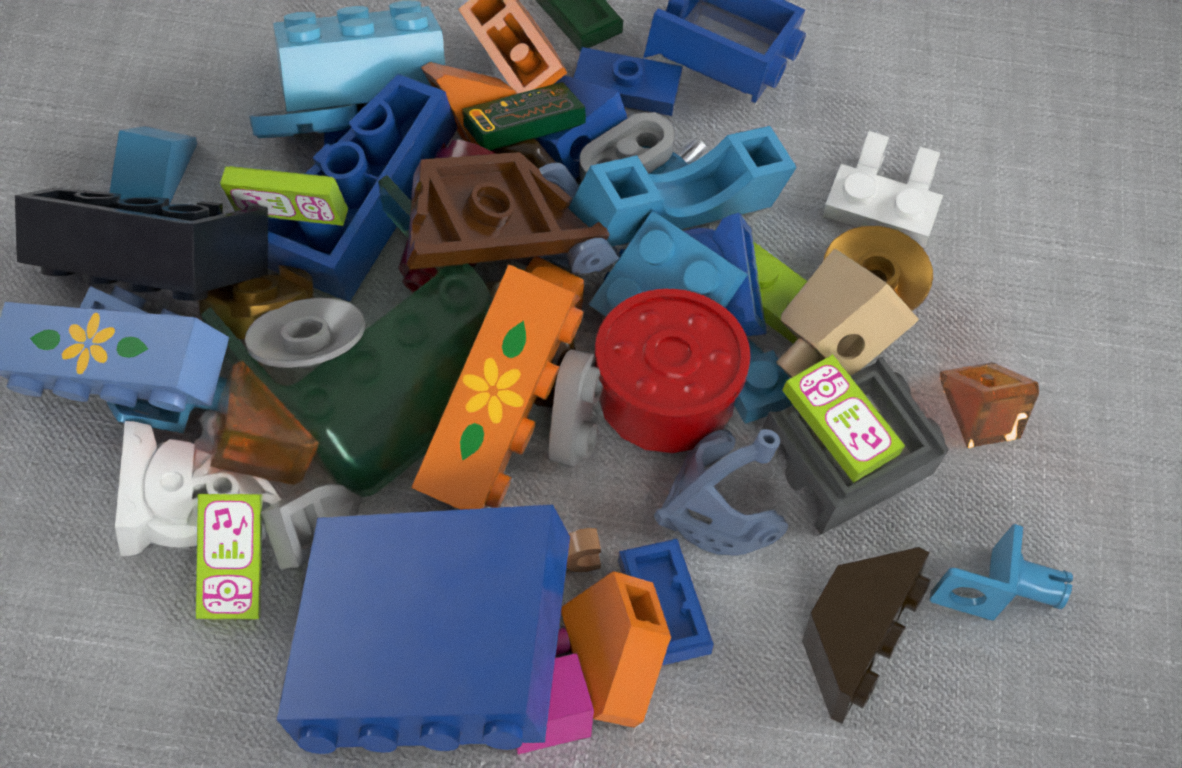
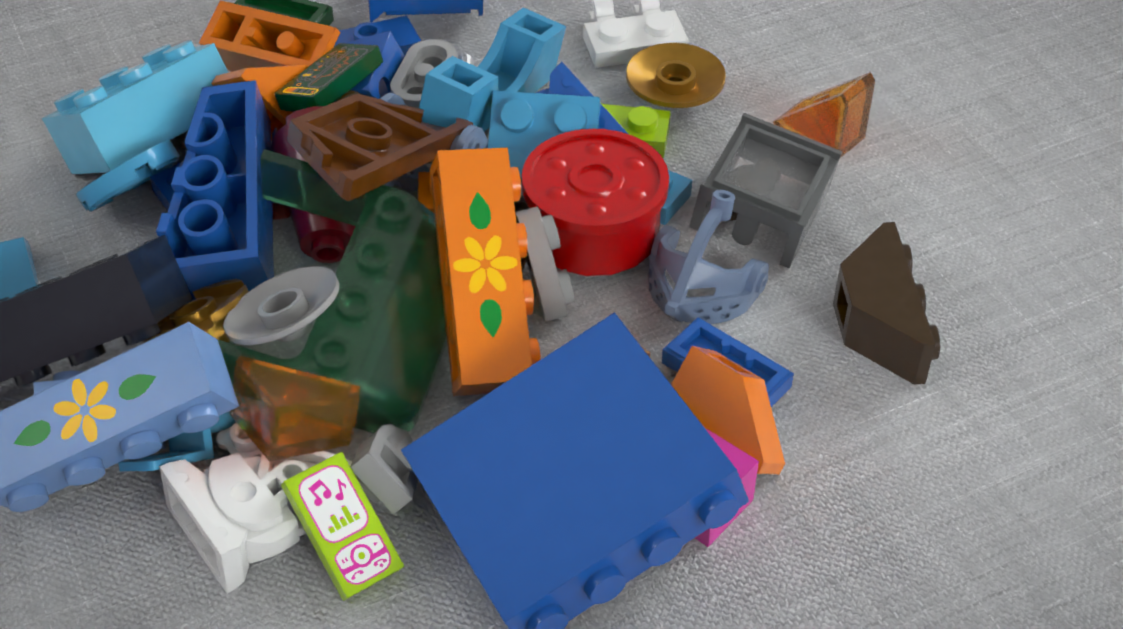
camera: 30 degrees left, 10 degrees down
(285, 194) = (177, 213): lime tile -> none
(842, 314) = (694, 101): tan torso -> none
(843, 418) = (757, 161): tile -> none
(1008, 577) = (950, 221): dark azure bracket -> none

